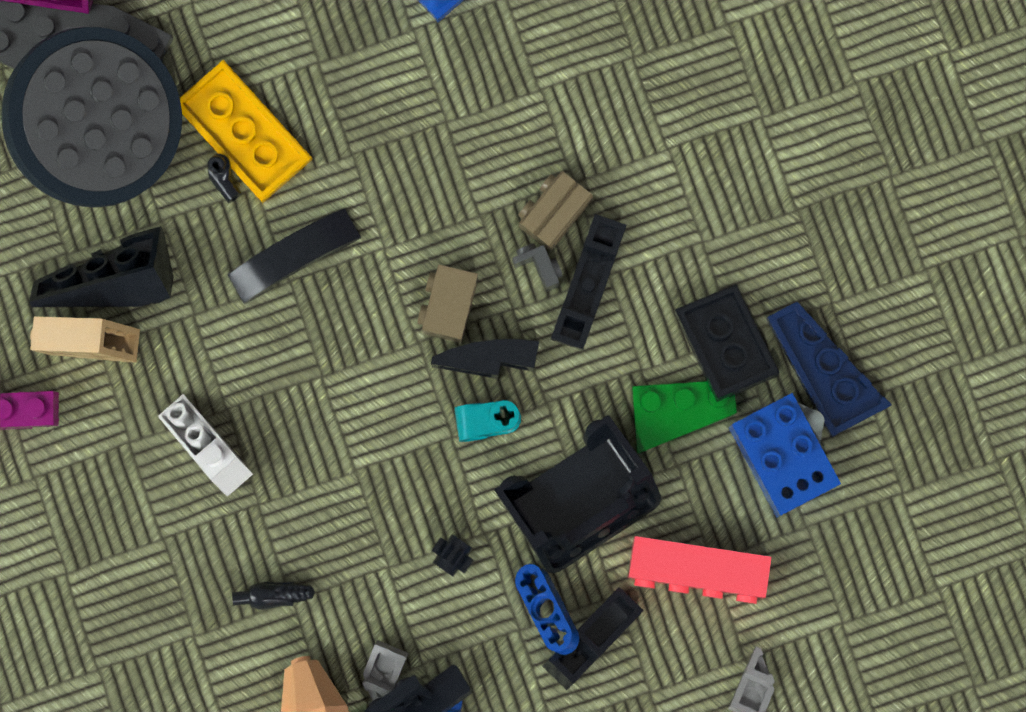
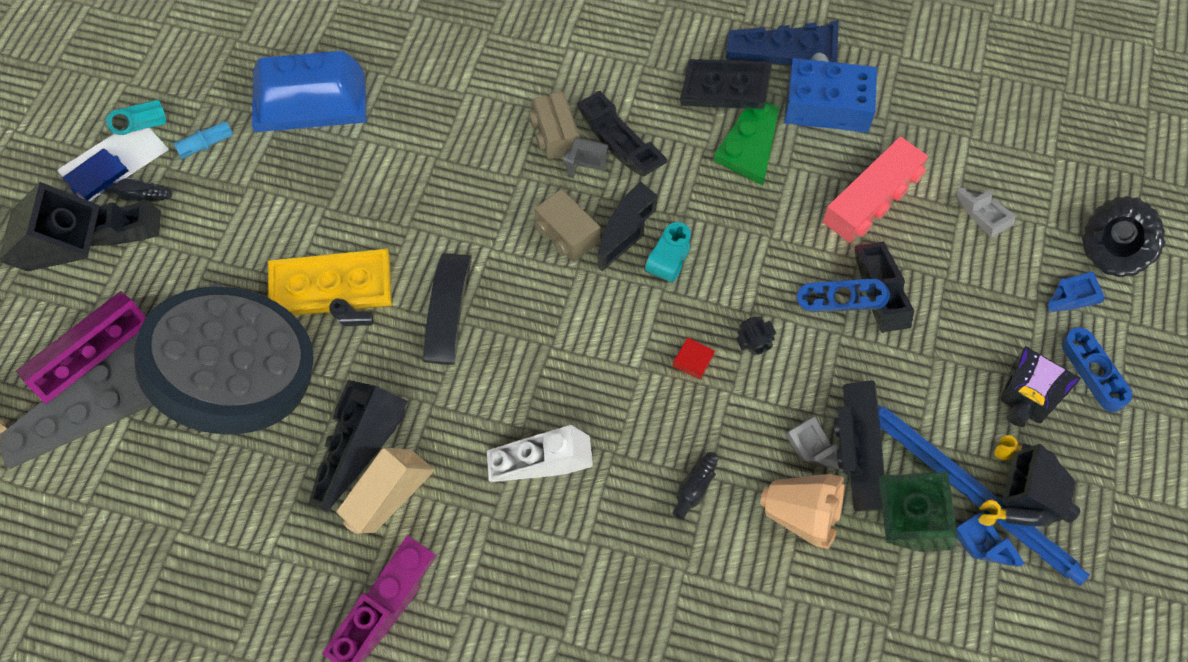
camera: 55 degrees left, 20 degrees down
(396, 513) = (694, 358): none -> red tile
(582, 497) = (771, 225): black windscreen -> none

